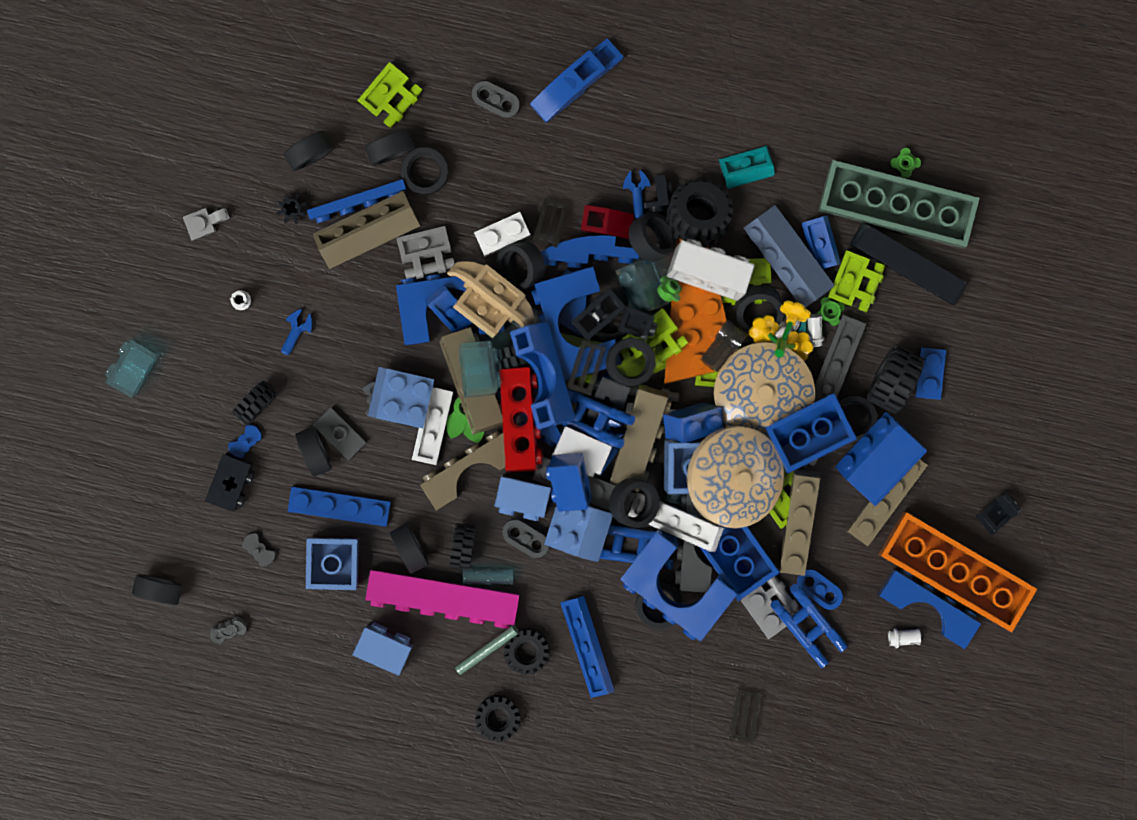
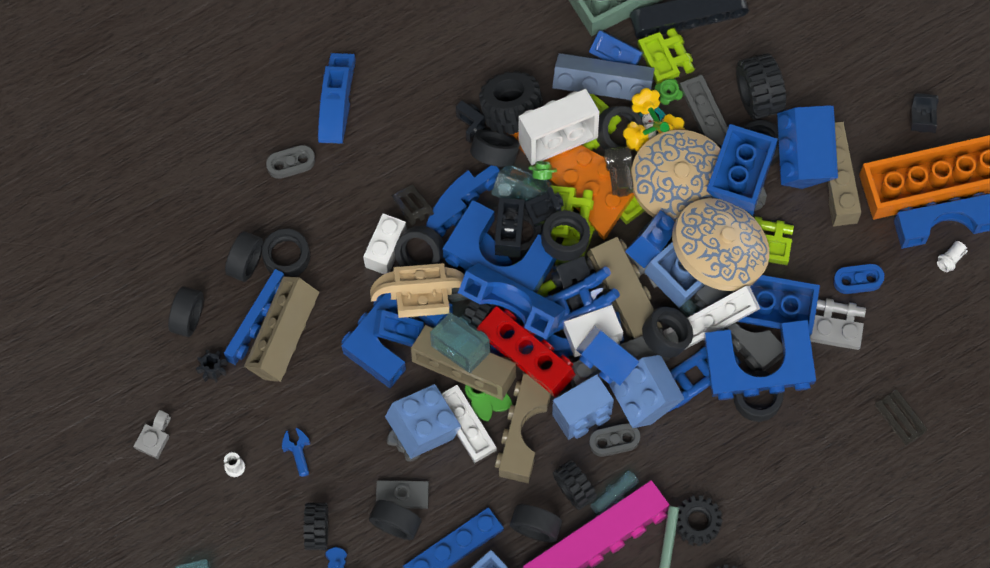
camera: 50 degrees left, 20 degrees down
(384, 89) = (202, 226): lime plate -> none
(422, 246) = (336, 302): light grey plate -> none
(587, 646) = (738, 474): blue plate -> none
(593, 346) = (546, 287): clear smoke tile -> none
(606, 221) = (448, 168): dark red slope -> none
(637, 192) = (452, 133): blue bar -> none
(747, 167) = (514, 51): teal slope -> none
(799, 522) = (784, 222): dark tan arch -> none
(814, 329) = (669, 108): white pin -> none
(822, 627) = (888, 302): blue piece -> none
(931, 378) = (791, 76): blue plate -> none

